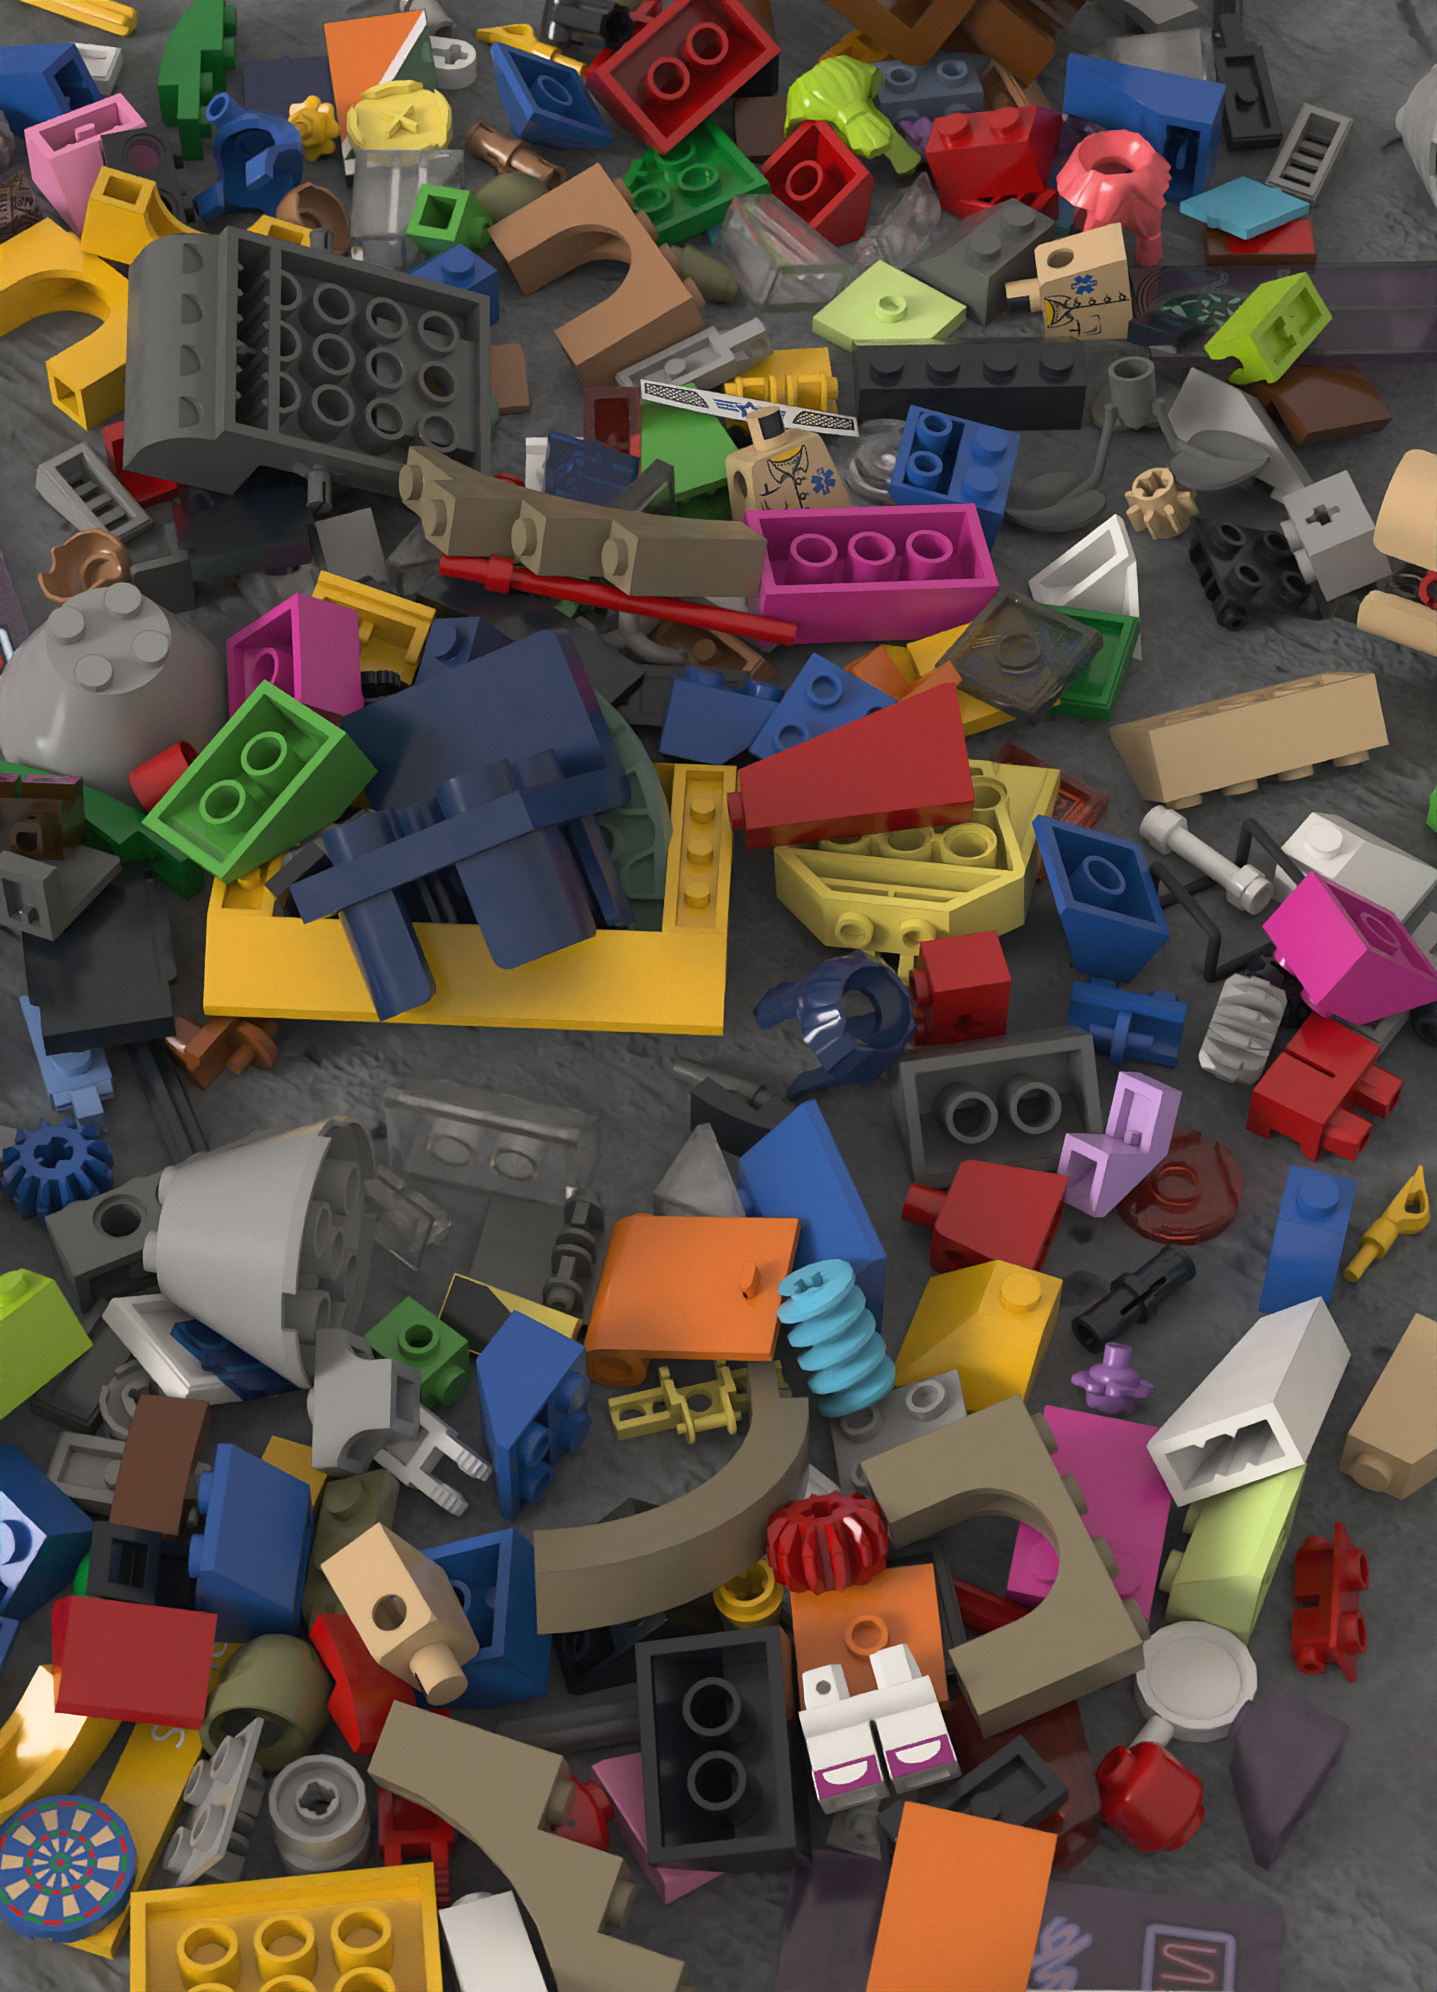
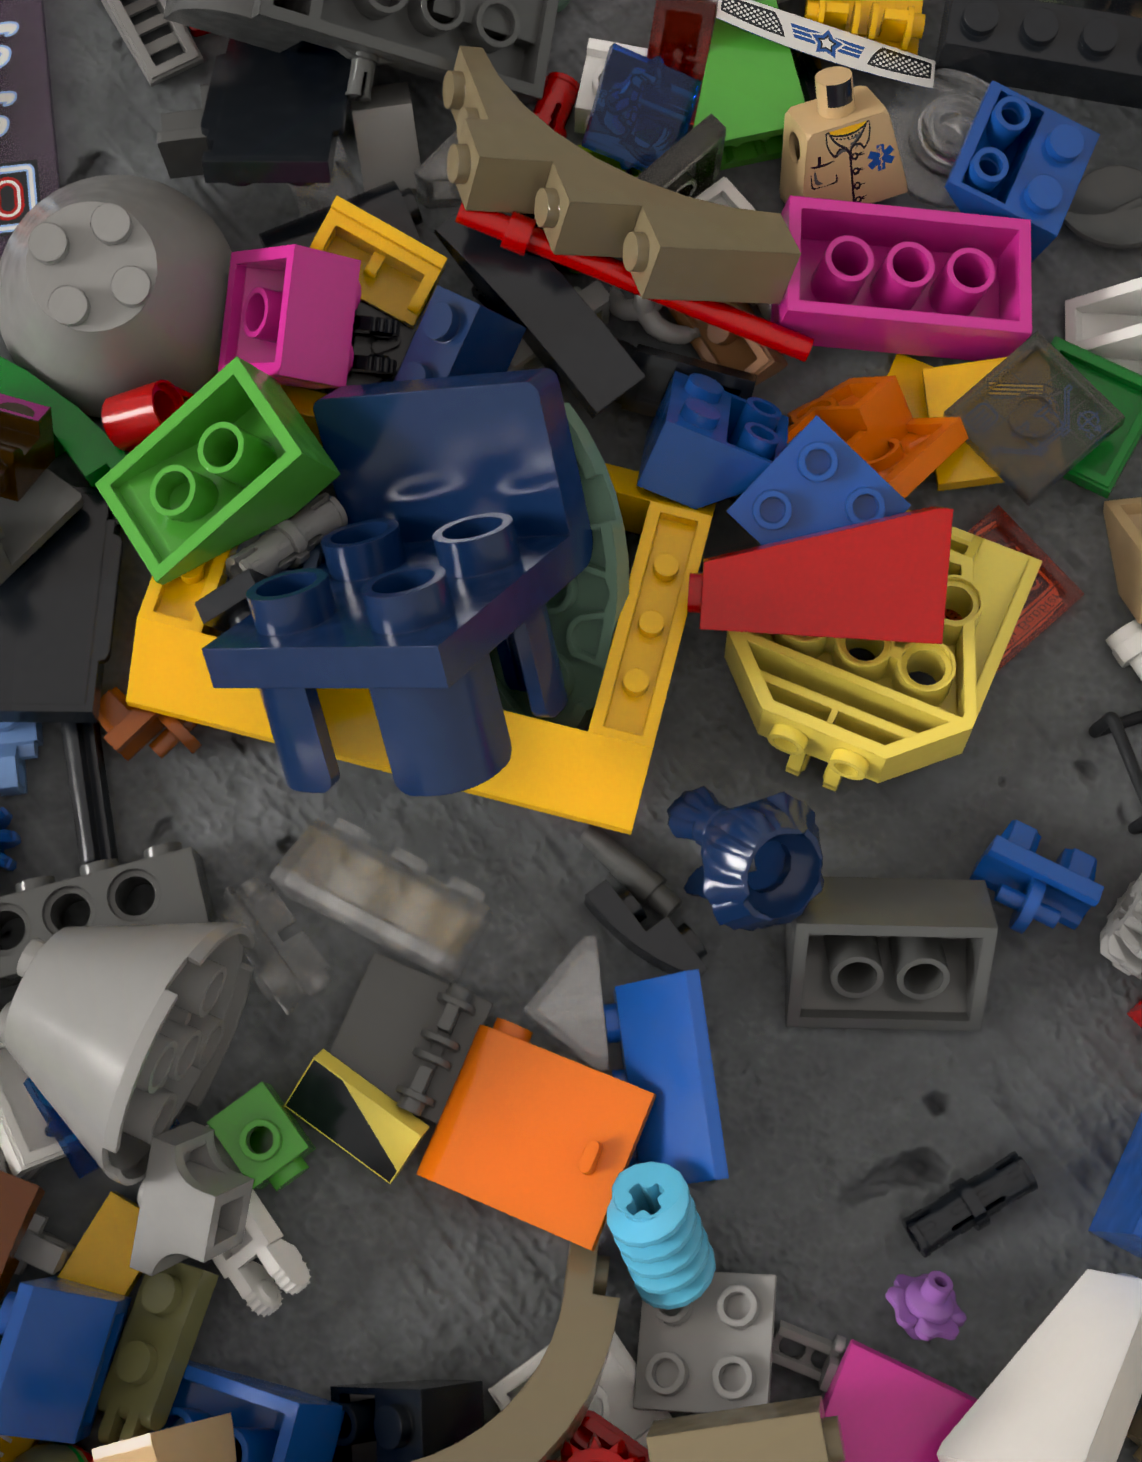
camera: 10 degrees right, 25 degrees up
(84, 563) = (119, 121): medium nougat hair -> none
(530, 1407) = (341, 1239): blue slope -> none
(724, 1410) = (508, 1265): light yellow piece -> none
(960, 989) = (877, 836): red brick -> none
(988, 1326) = (804, 1225): yellow slope -> none
(990, 1216) = (849, 1099): red torso -> none
(1102, 898) = (1049, 740): blue slope -> none
(1135, 1142) = (989, 1048): lavender slope -> none
(1187, 1194) = (1042, 1075): clear red tile -> none

